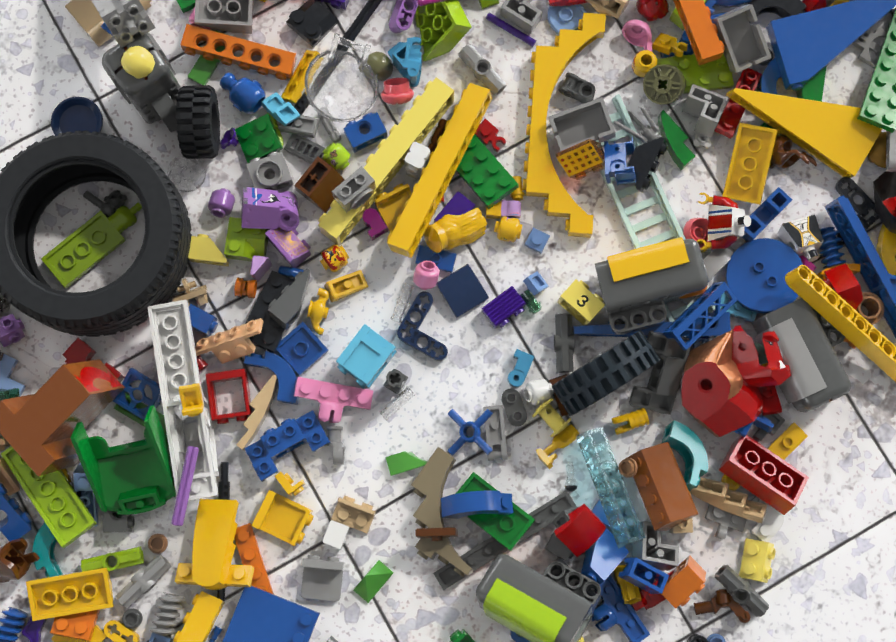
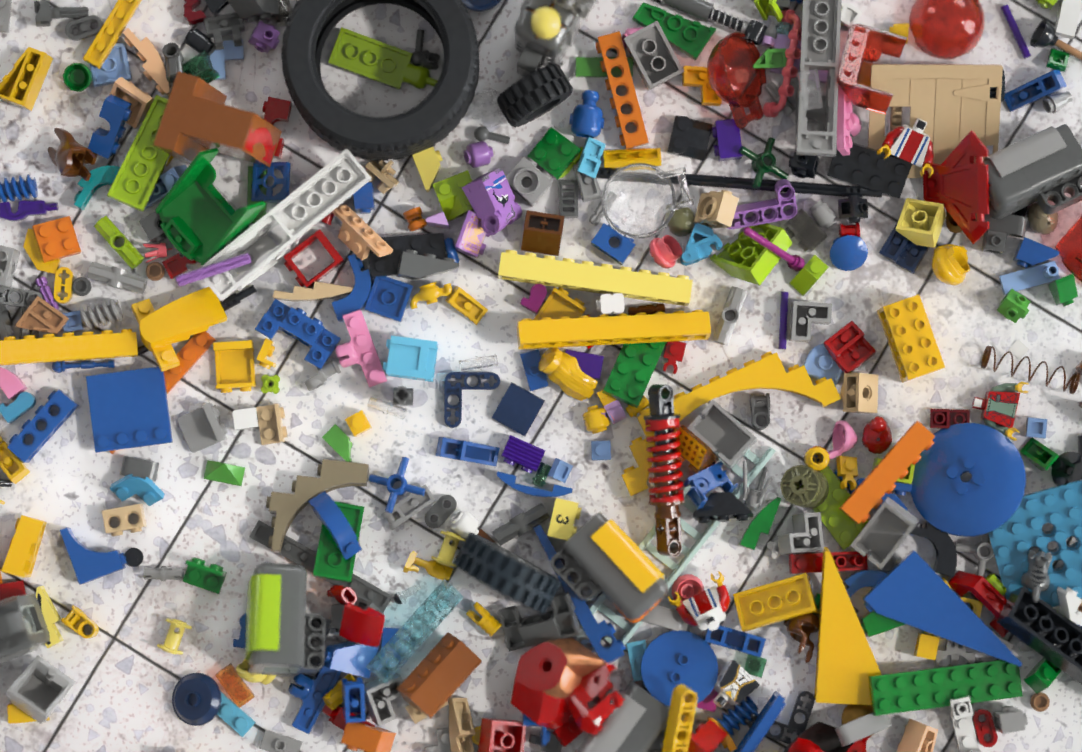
camera: 60 degrees right, 5 degrees up
(70, 594) = (73, 223): yellow slope -> none
(143, 529) = (161, 252): none -> coral piece
(163, 519) = (177, 265): none -> red plate
(191, 400) = (287, 233): yellow bracket -> none
(205, 190) = (482, 134): none -> dark grey bar
(229, 139) = (539, 127): dark purple plant -> none
(317, 490) = (275, 384): none -> lime plate
(334, 258) = (484, 281): head -> none
(336, 156) = (575, 231): lime head -> none
(354, 190) = (546, 267): light grey brick -> none
(386, 28) = (716, 209): none -> tan brick
(397, 435) = (358, 423): none -> yellow brick
(426, 275) = (513, 370): bright pink head -> none
(436, 534) = (291, 504): reddish brown plate -> none
(474, 354) = (467, 451): none -> blue slope
(521, 331) = (557, 490): none -> blue slope
(521, 368) = (468, 499): dark azure leg -> none
(542, 533) = (342, 594): none -> red piece
(593, 192) = (665, 465): none -> piece
(628, 467) = (438, 637): medium nougat plate -> none
(691, 450) = (487, 686): teal arch -> none
(693, 312) = (607, 622): blue fence -> none
(793, 211) = (755, 665): none -> clear green plate
(852, 61) = (926, 646): none -> yellow brick

